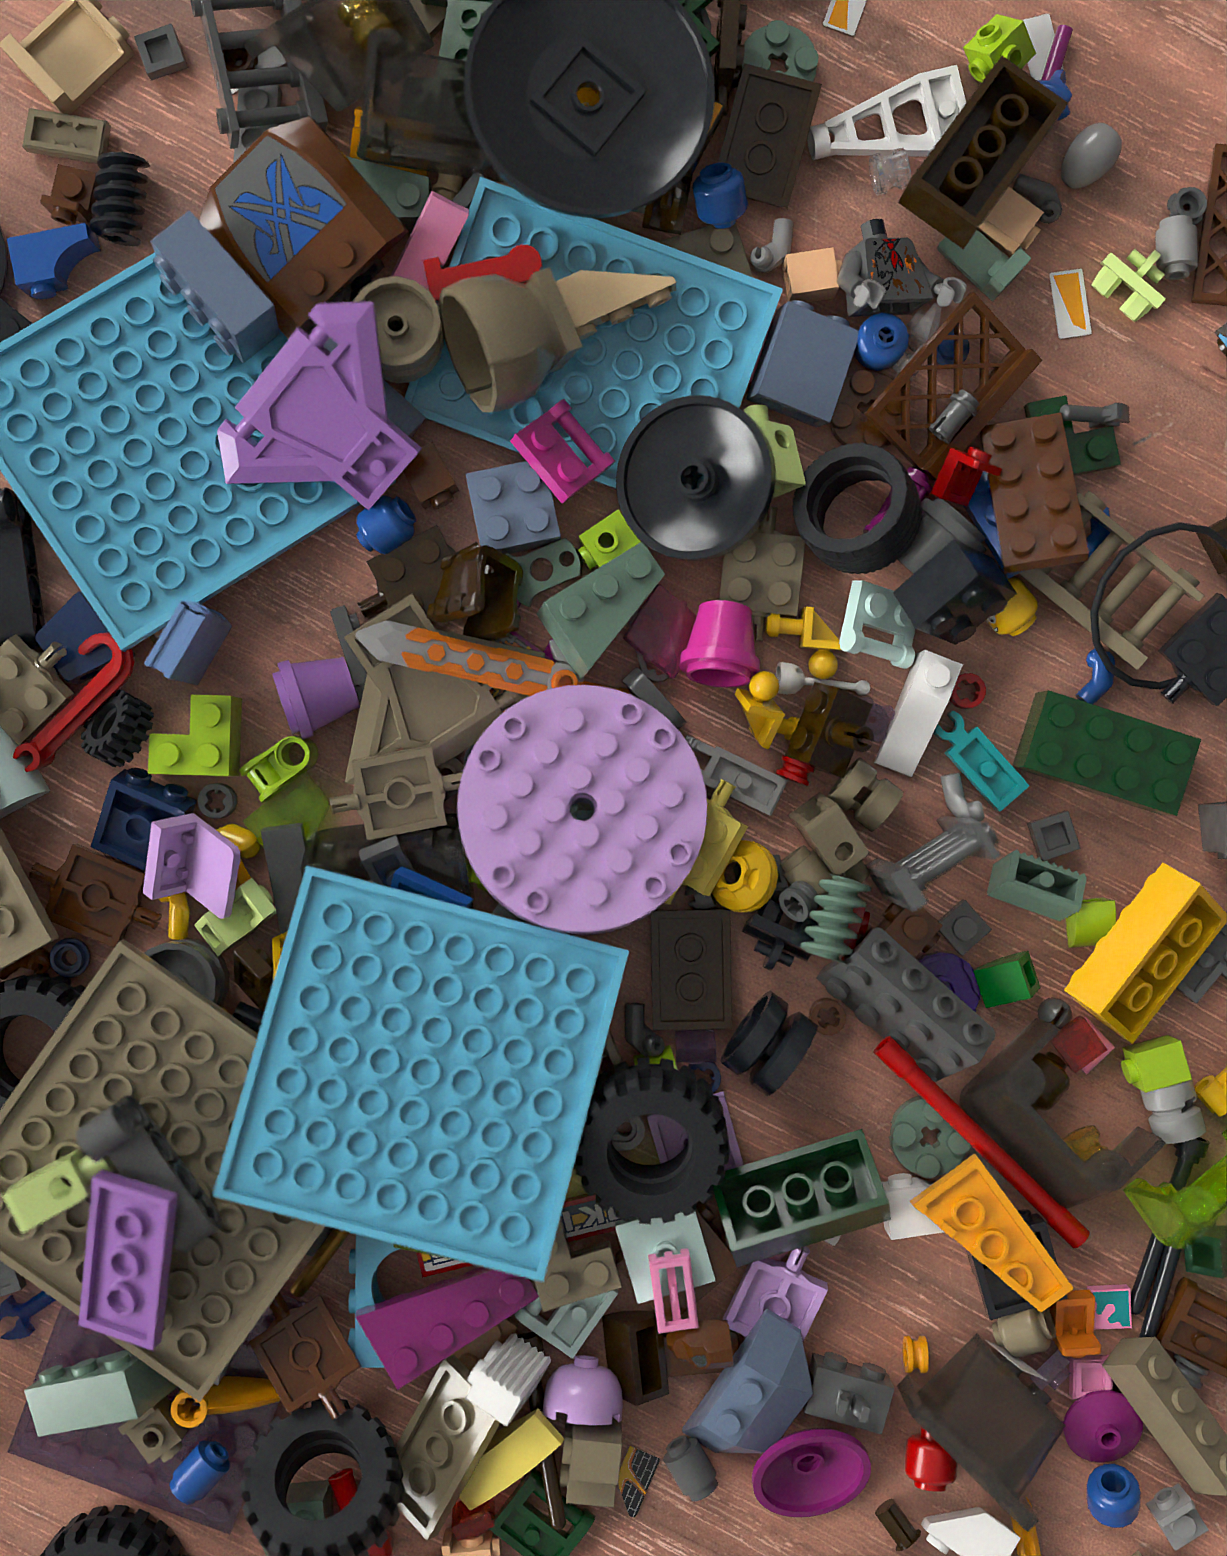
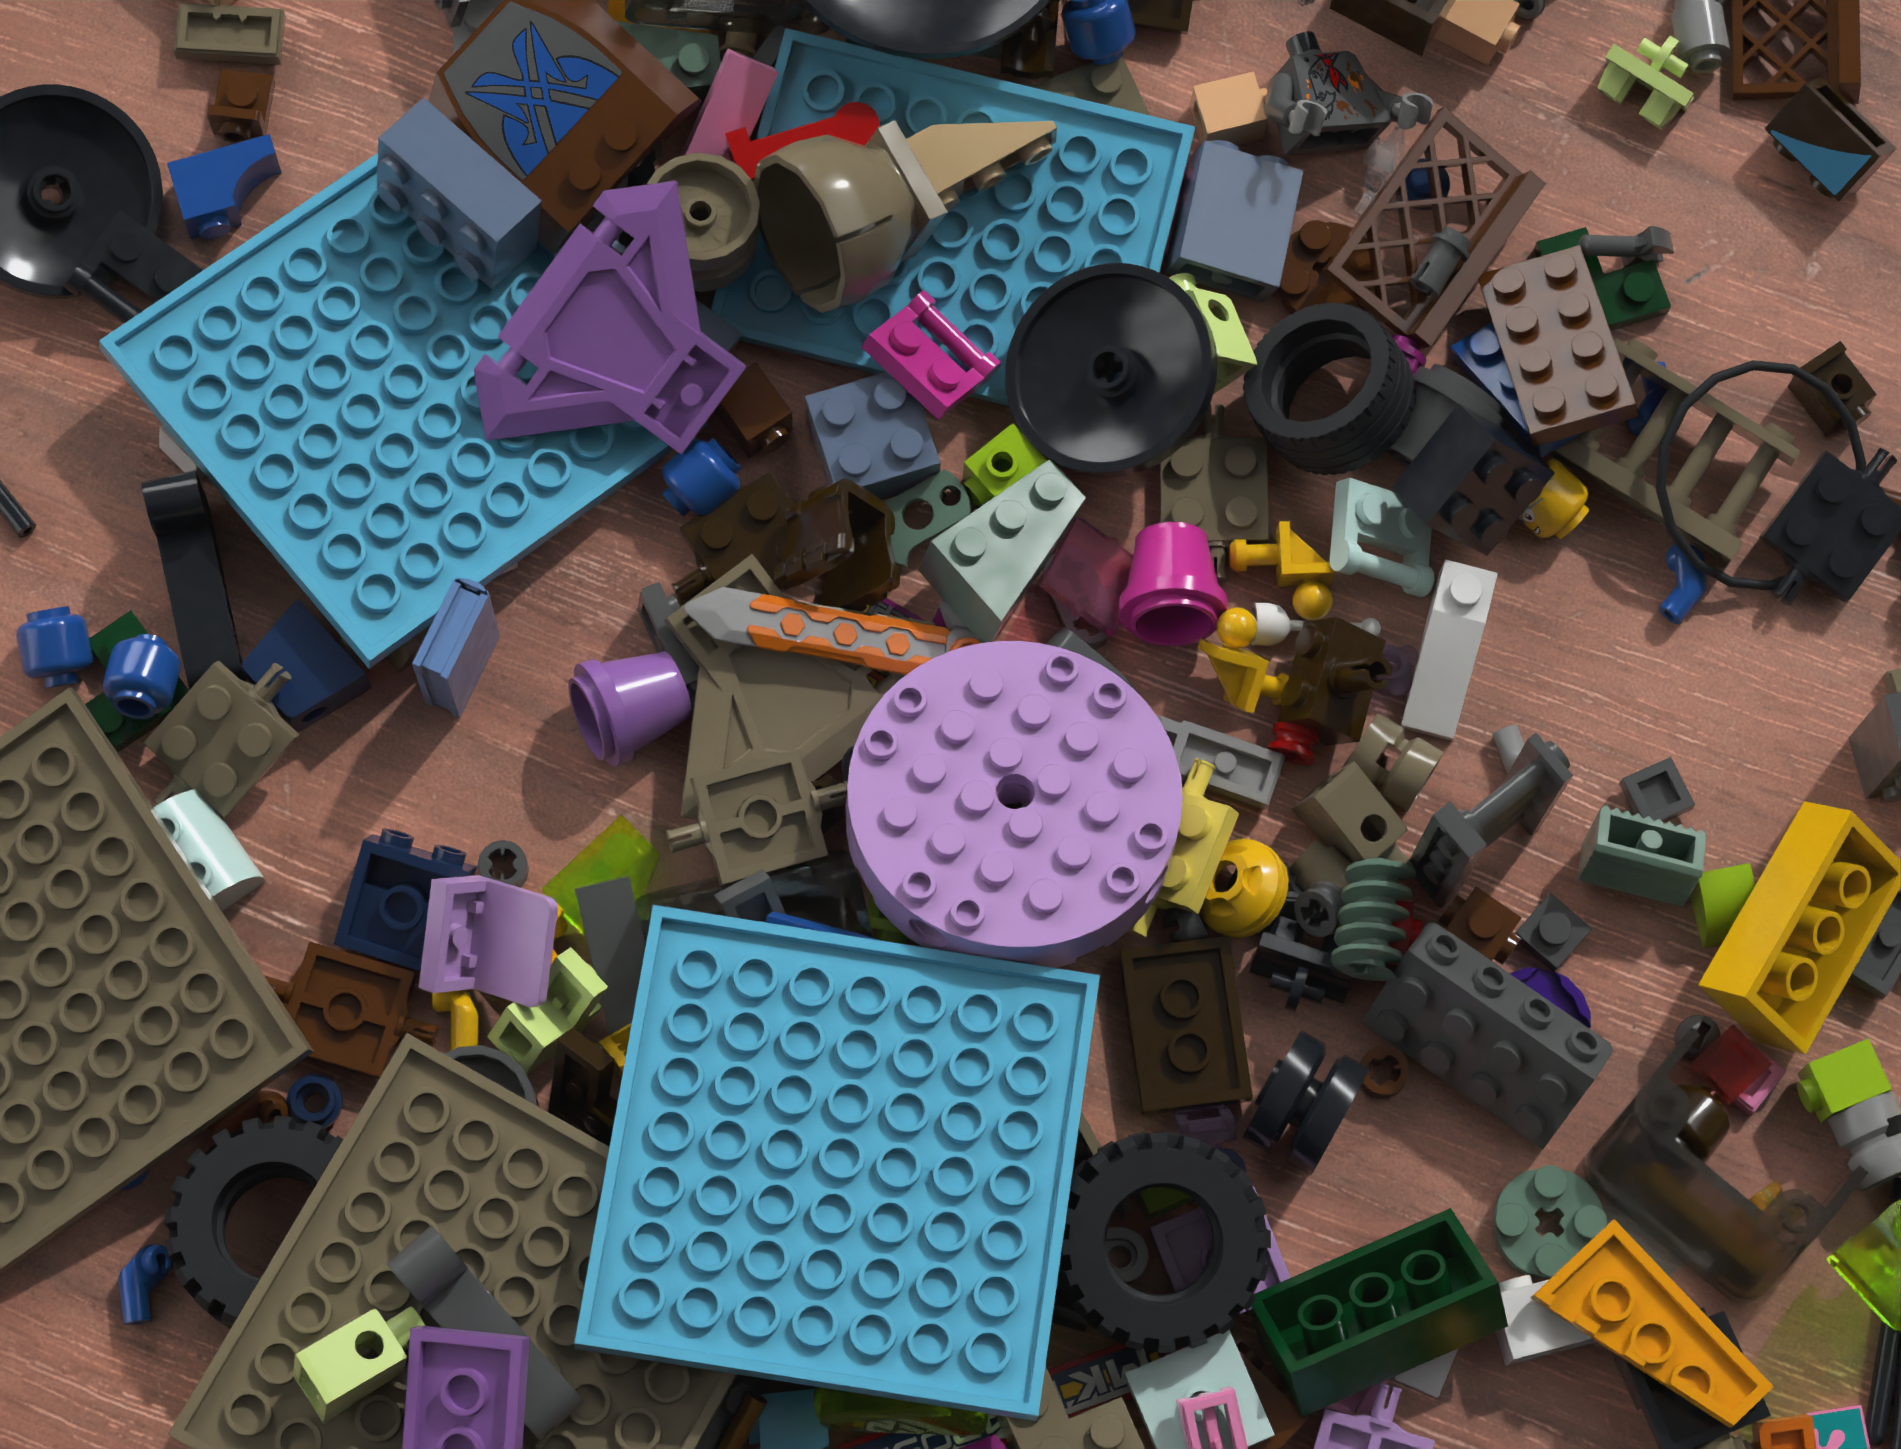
camera: 15 degrees left, 15 degrees down
(82, 706) = (312, 750): red piece -> none
(116, 197) = (304, 102): black piece -> none
(117, 729) = (363, 774): black tyre -> none
(212, 741) = (486, 796): lime brick -> none
(274, 769) = (583, 809): lime piece -> none
(640, 1035) = (1117, 1118): dark grey arm -> none
(774, 253) = (1176, 90): light grey arm -> none
(882, 353) = (1332, 182): blue head -> none
(962, 473) = (1461, 332): red bracket -> none
(965, 703) = (1511, 601): red bush -> none
(982, 763) = (1544, 706): teal plate -> none
(985, 263) = (1453, 75): sand green bracket -> none
(1007, 979) = (1623, 993): green brick -> none
(1055, 1214) = (1738, 1303): red piece -> none
(1070, 303) = (1575, 115): sticker -> none
(1106, 753) = (1709, 676): dark green brick -> none

